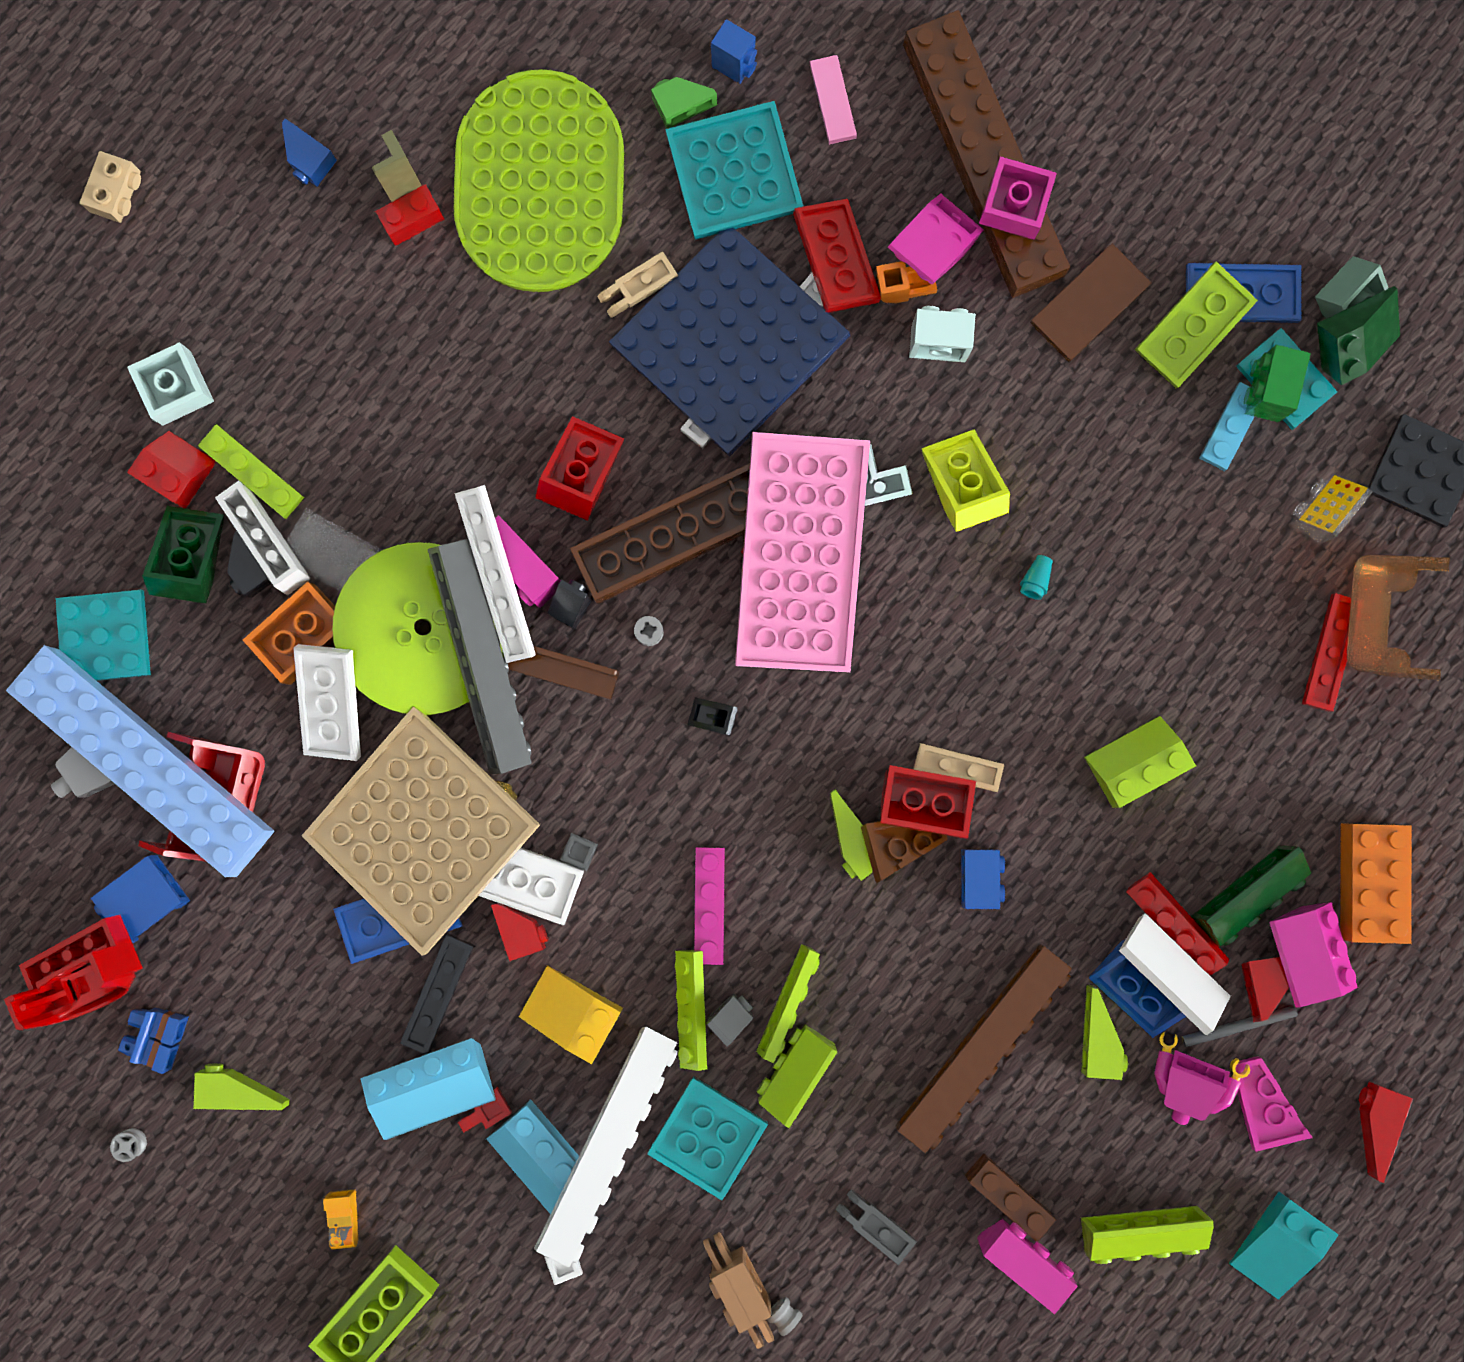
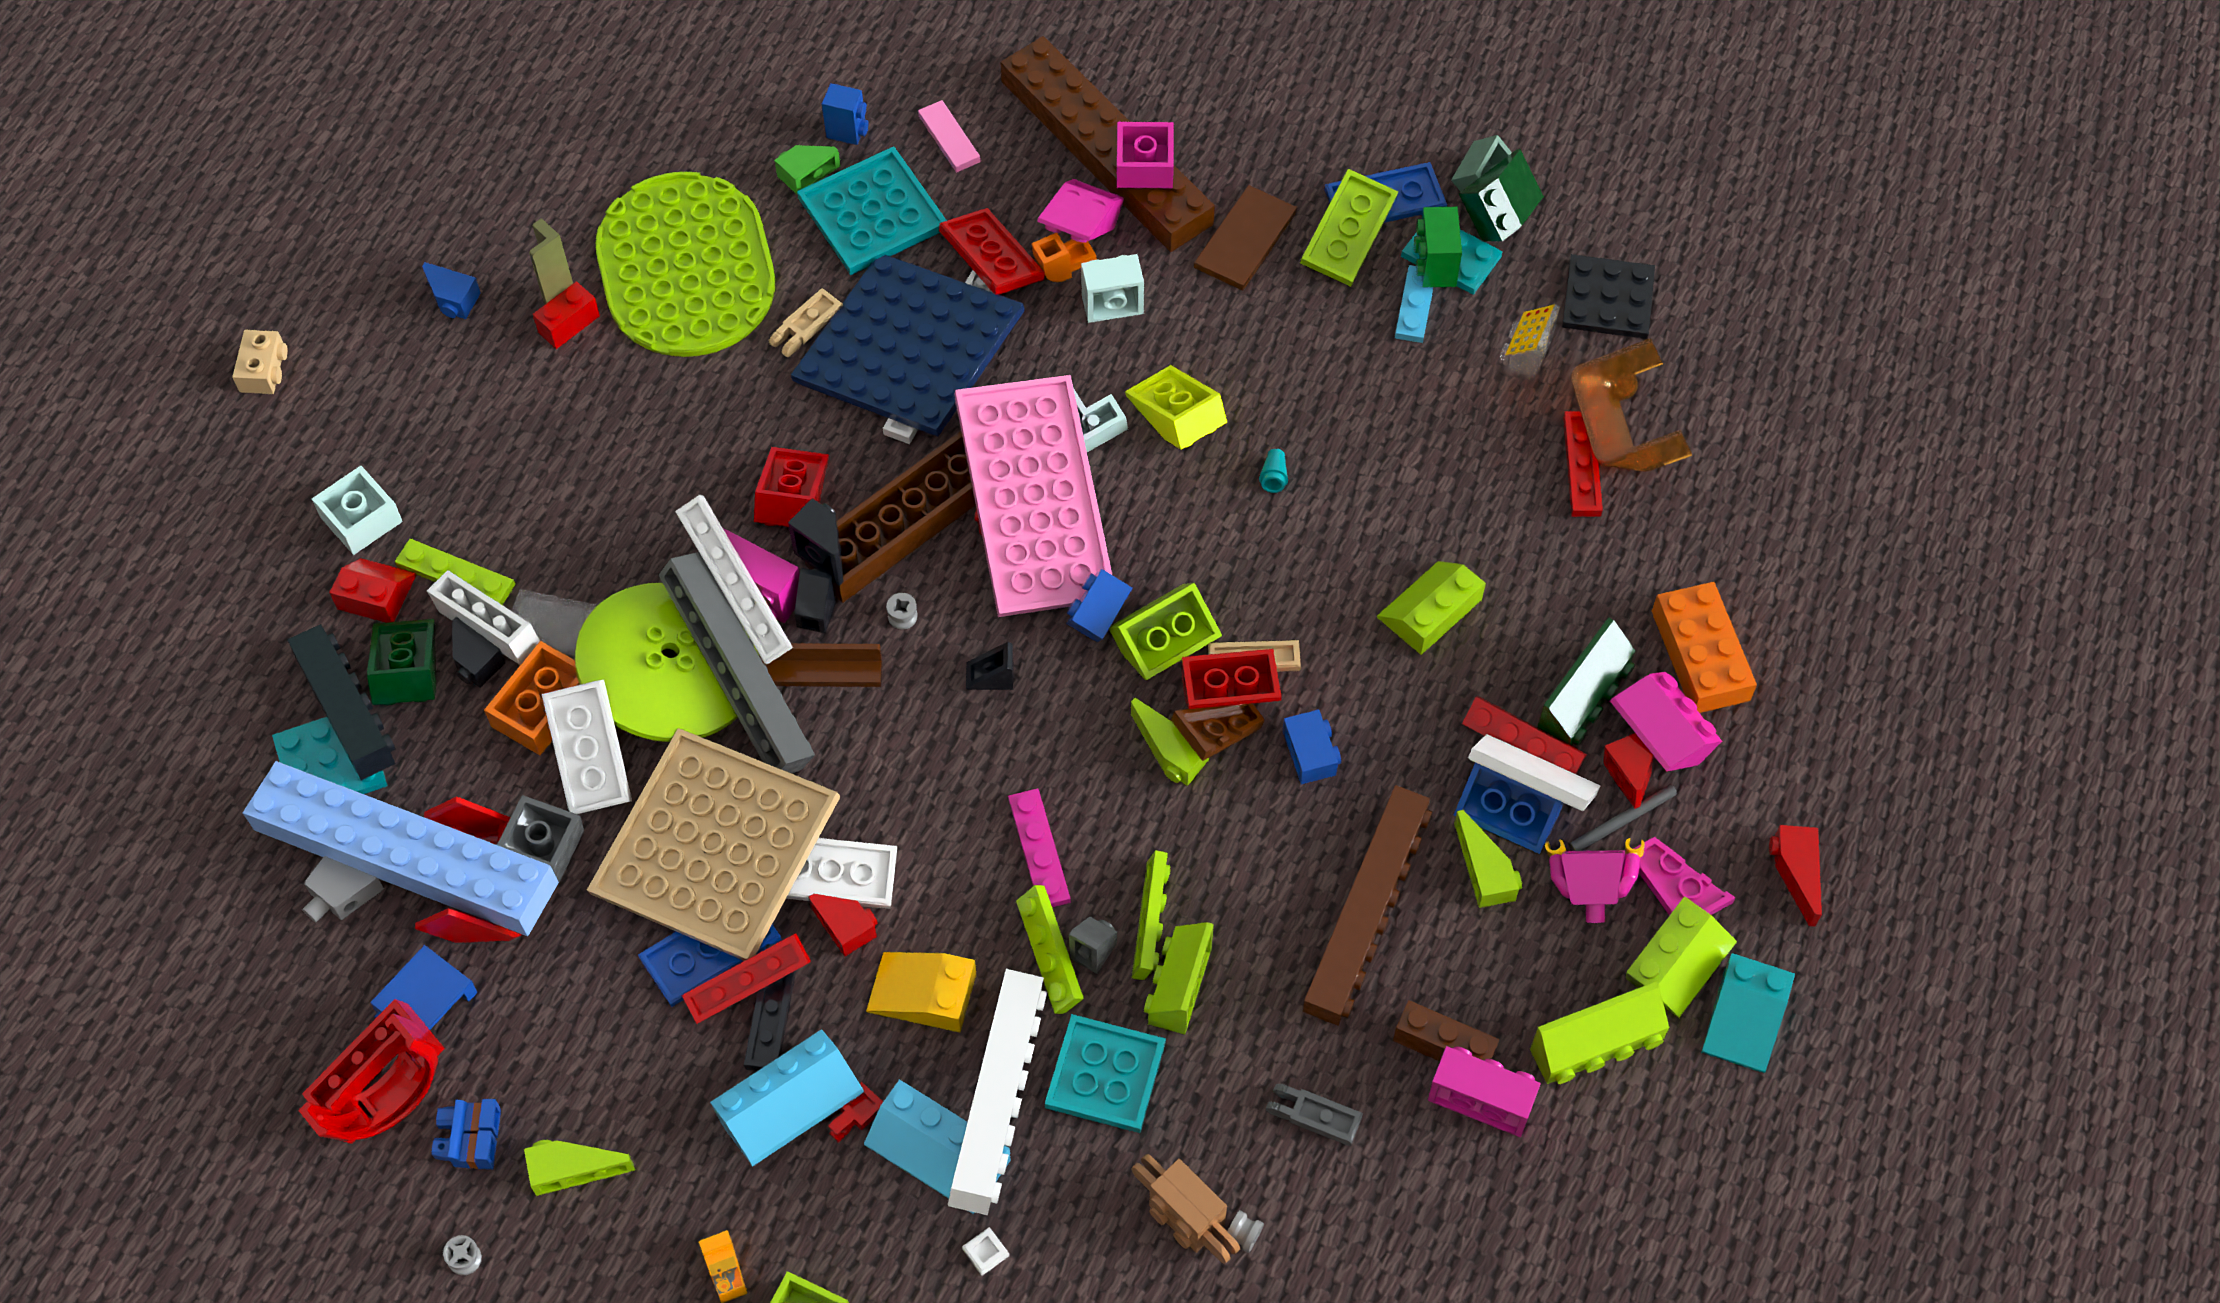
camera: 20 degrees left, 25 degrees down
(118, 589) = (341, 701): none -> black brick
(268, 779) = (543, 833): none -> dark grey slope
(419, 969) = (746, 978): none -> red plate
(579, 851) = (887, 831): dark grey tile -> none
(585, 558) = (817, 538): none -> black slope
(829, 683) = (1098, 605): none -> blue brick
(884, 722) = (1165, 630): none -> lime slope
(1241, 1181) = (1682, 955): none -> lime slope

